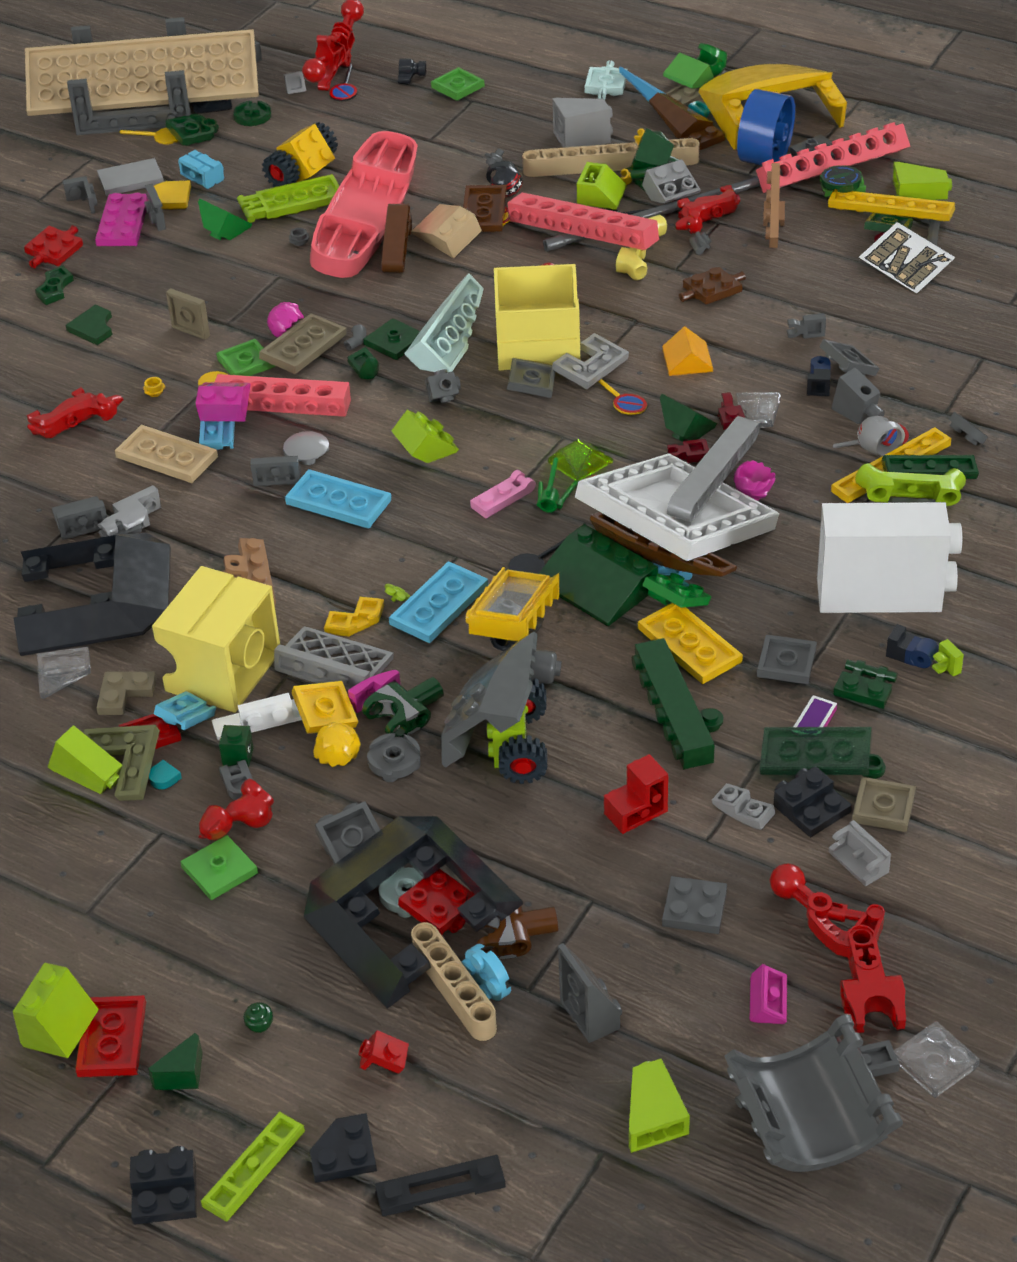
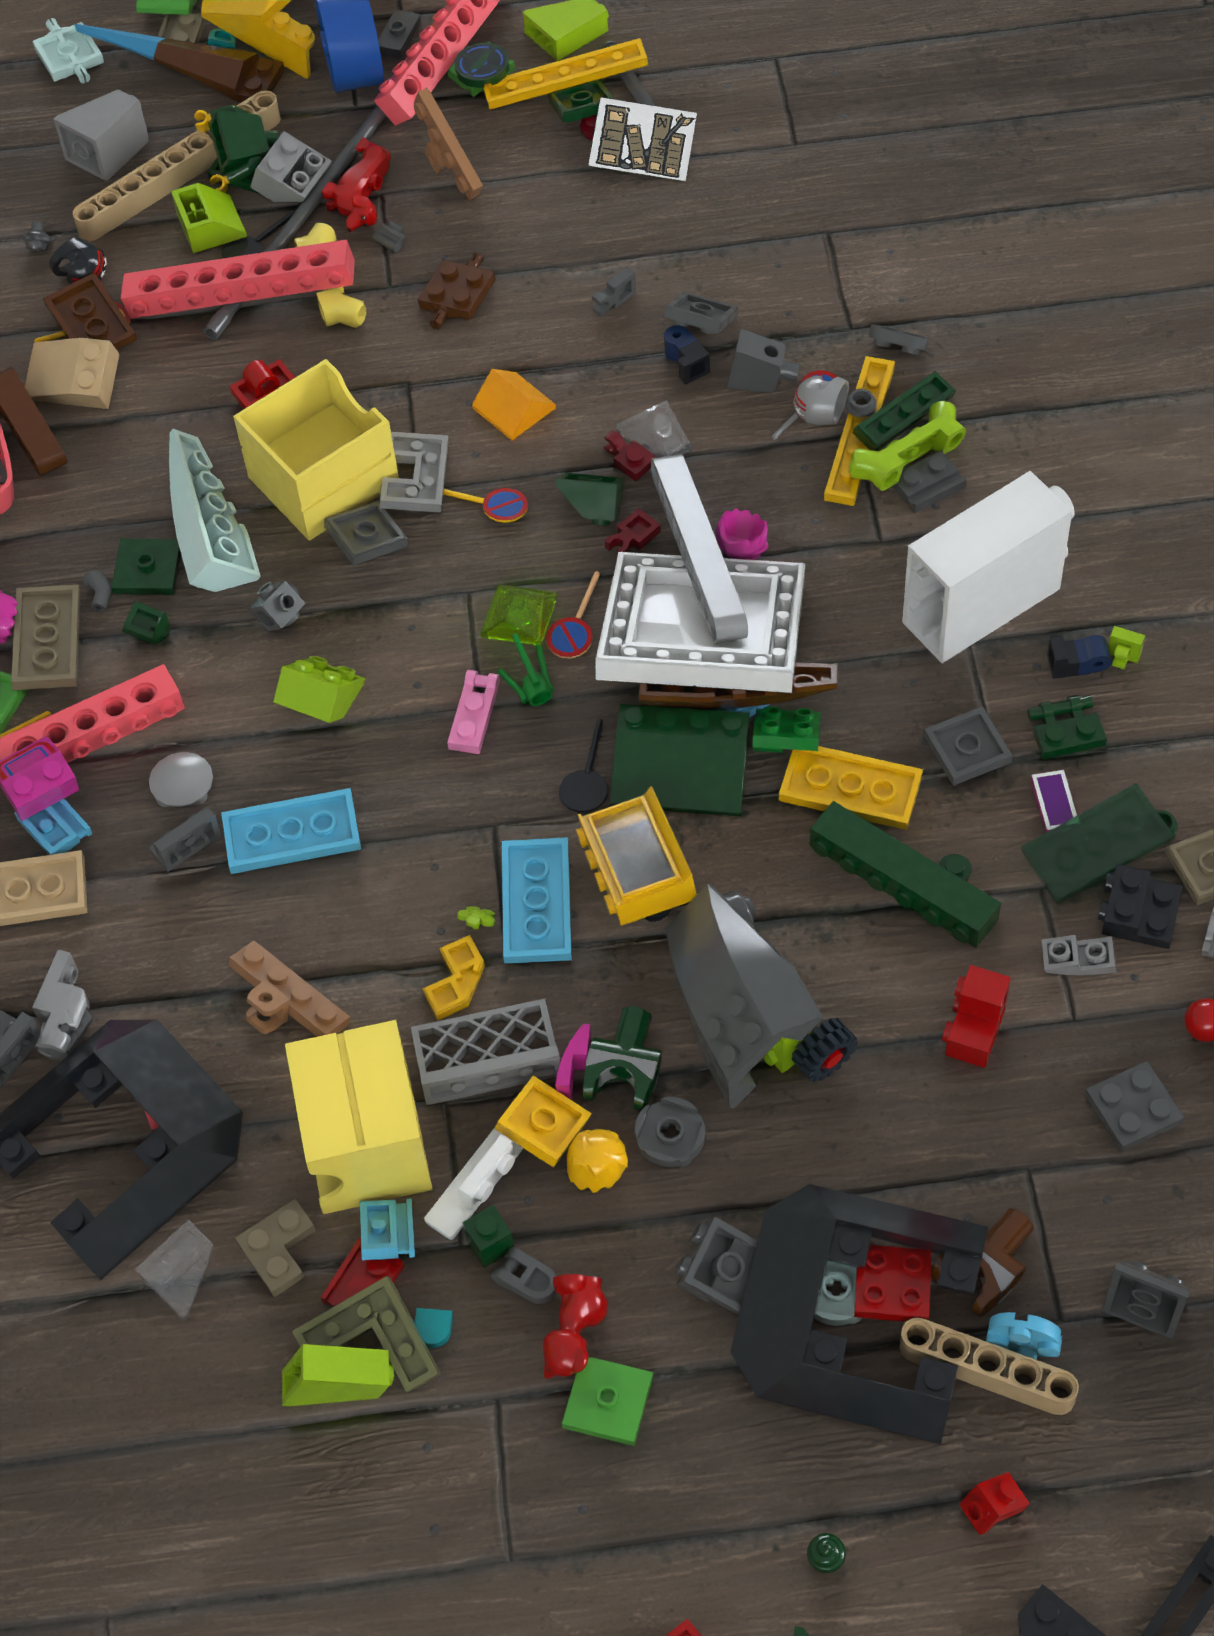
camera: 35 degrees left, 15 degrees up
(902, 446) = (861, 403): none -> dark grey plate

